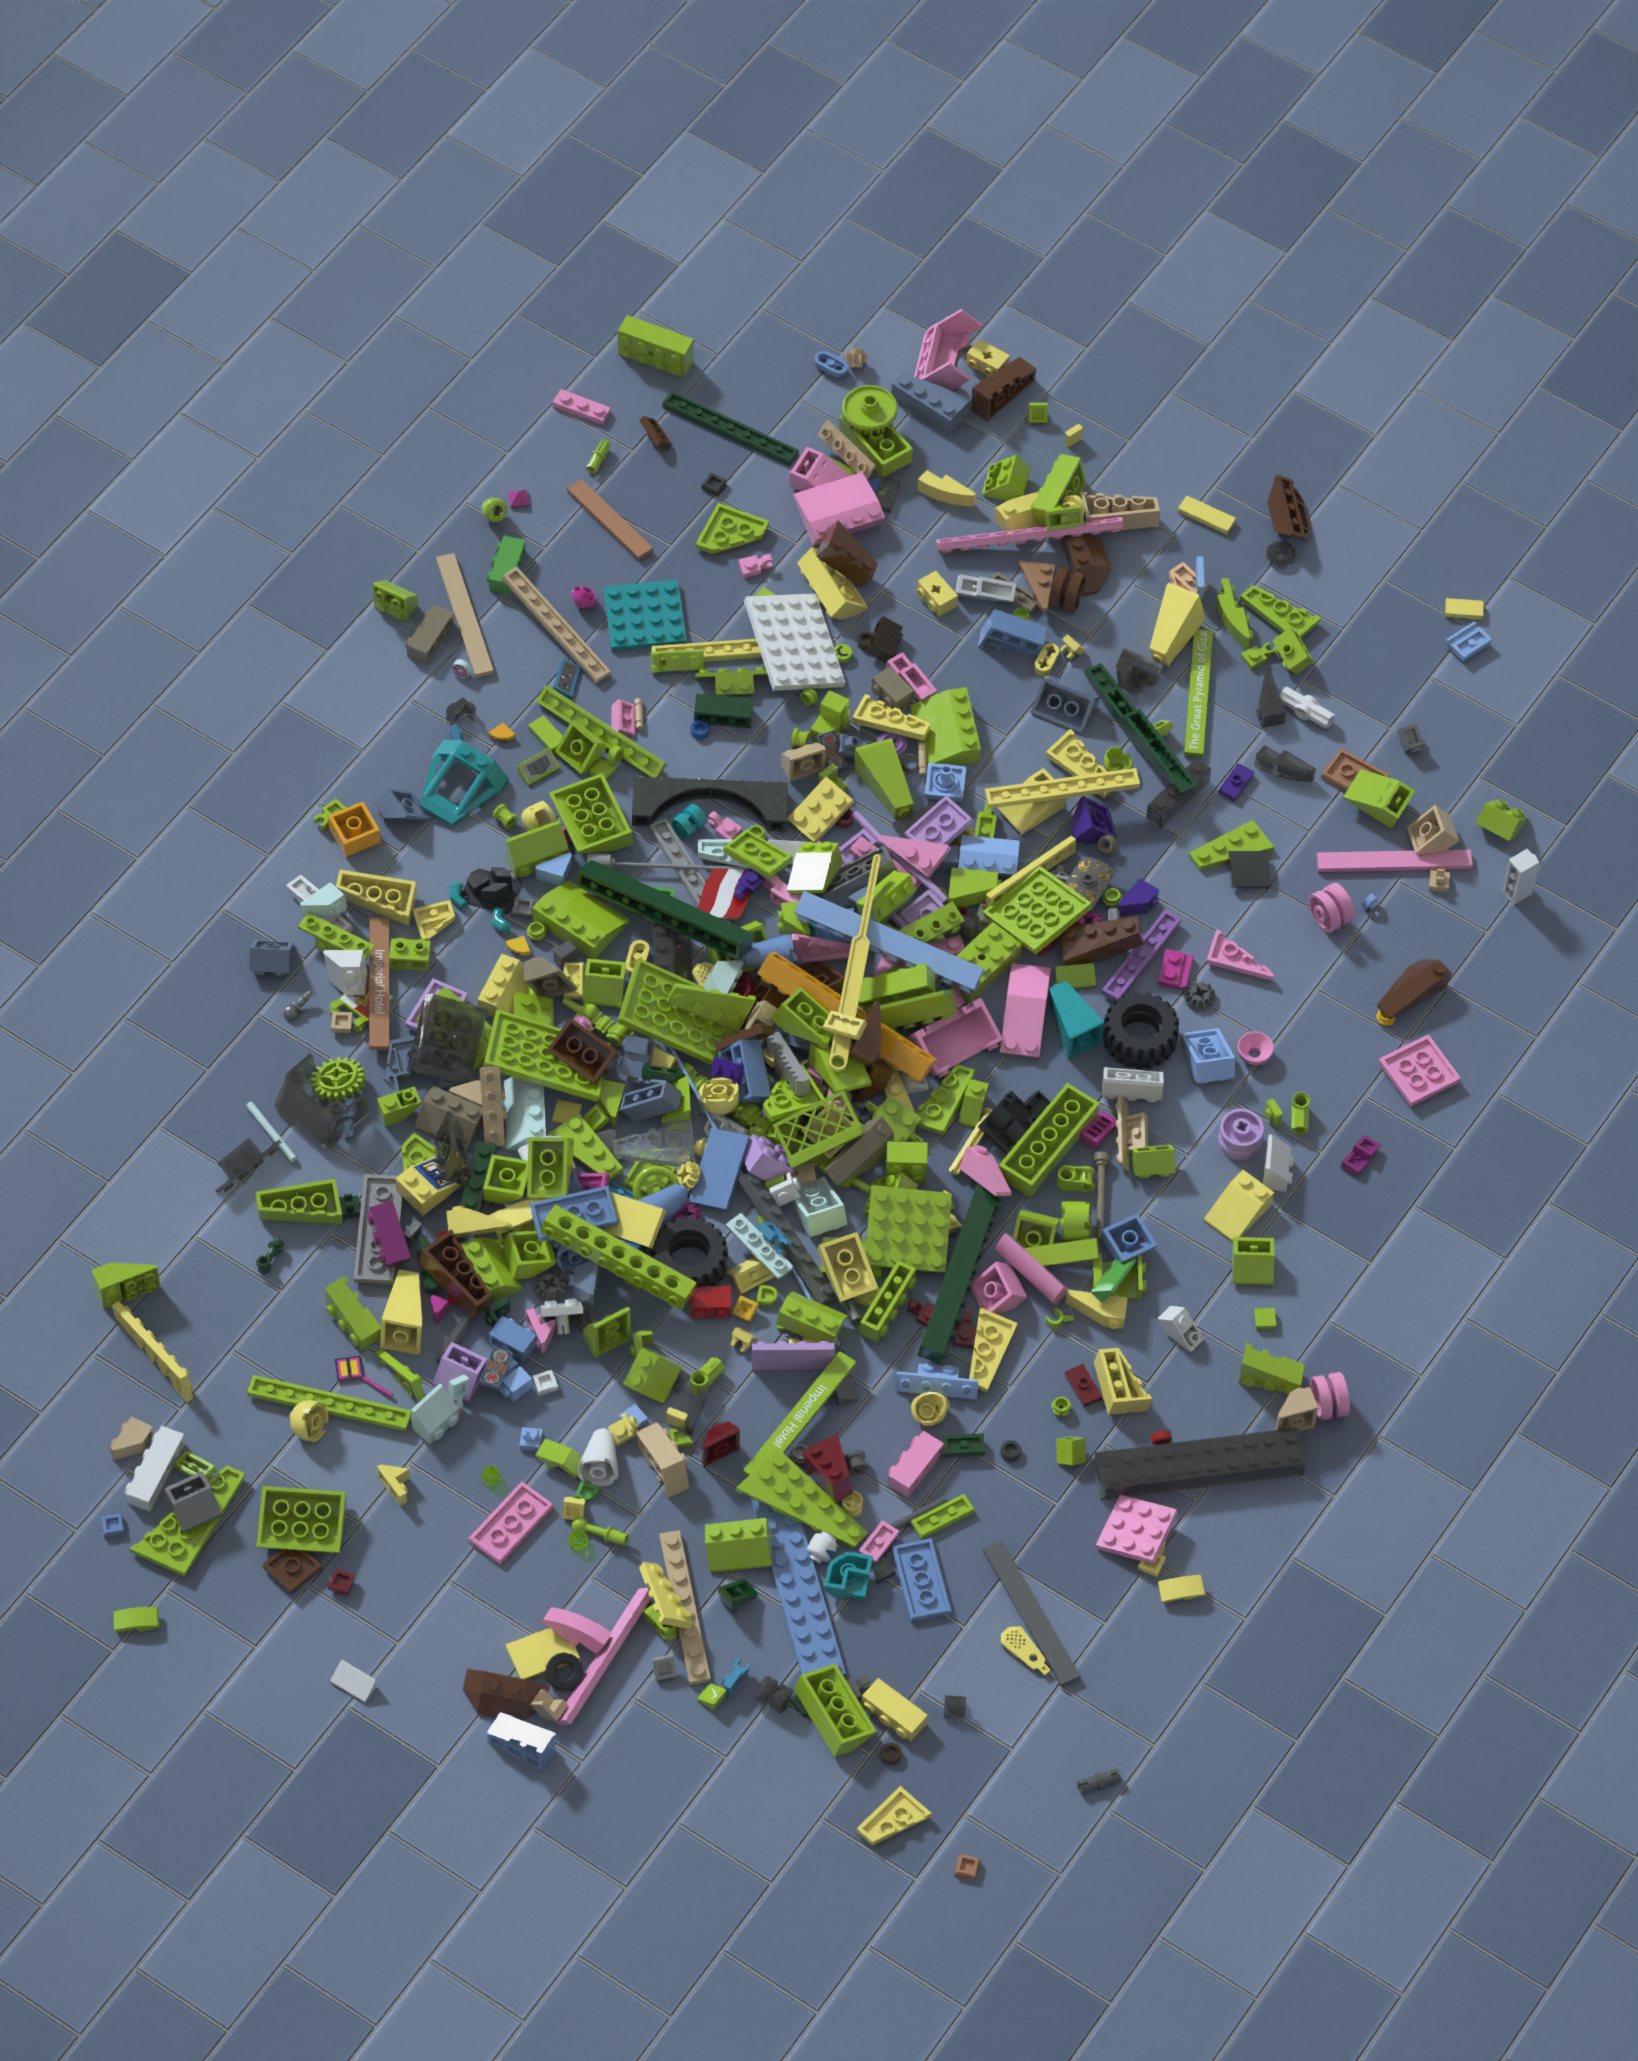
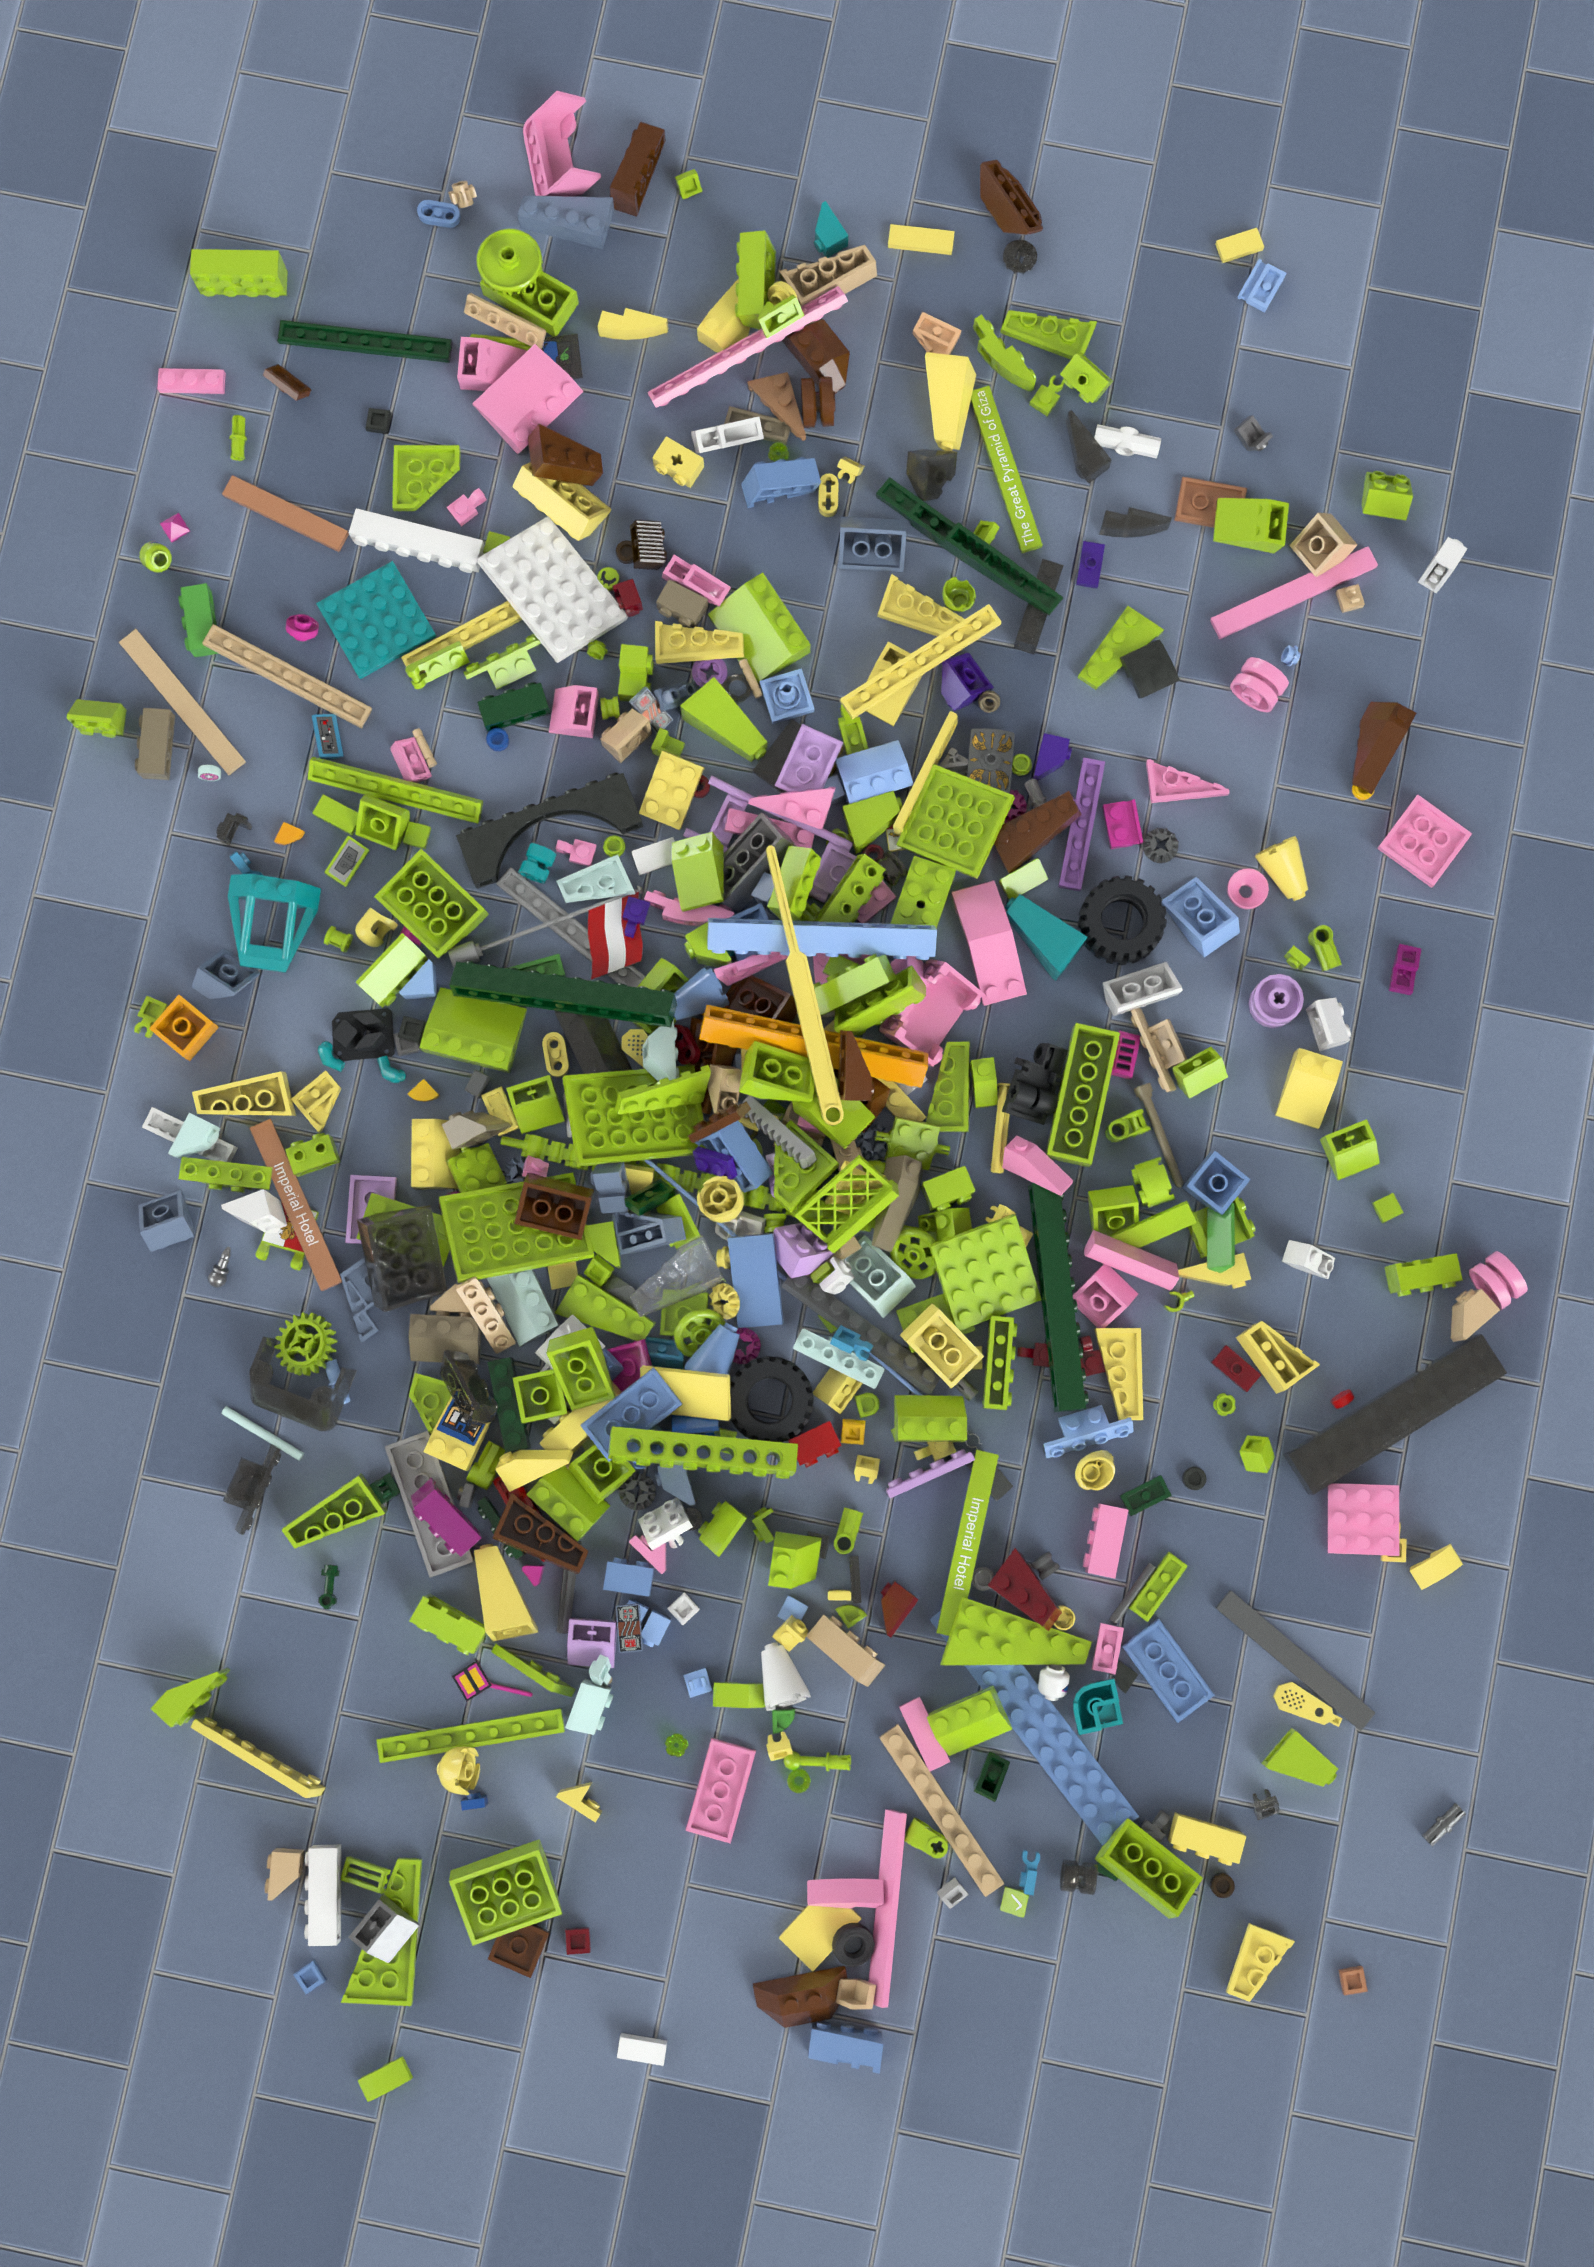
camera: 20 degrees left, 25 degrees up
(308, 1450) = (474, 1801): none -> blue plate
(341, 1022) = (277, 1269): tan plate -> none
(398, 1105) = (384, 1348): lime slope -> none
(435, 1221) = (484, 1470): none -> lime piece
(496, 1310) = (598, 1547): dark green bracket -> none
(530, 897) = (411, 1029): none -> pearl dark grey tile
(536, 931) = (434, 1066): lime plate -> none
(615, 755) = (423, 814): lime tile -> none
(667, 1601) = (929, 1827): light yellow wing -> none
(696, 1548) = (930, 1749): none -> bright pink tile
(702, 572) = (416, 540): none -> white brick
(757, 854) = (629, 876): lime tile -> none
(771, 730) = (574, 711): none -> bright pink slope
(845, 1025) = (825, 1072): light yellow plate -> none
(851, 669) = (628, 597): none -> dark red brick
(854, 1183) = (919, 1248): none -> lime plate
(986, 358) = (605, 138): light yellow brick -> none
(999, 1684) = (1300, 1760): none -> lime slope
(1006, 479) = (691, 284): lime slope -> none
(1073, 435) = (738, 197): light yellow tile -> none
(1134, 481) = (829, 233): none -> teal slope
(1200, 576) = (951, 326): light blue tile -> none
(1293, 1042) = (1285, 867): none -> light yellow cone

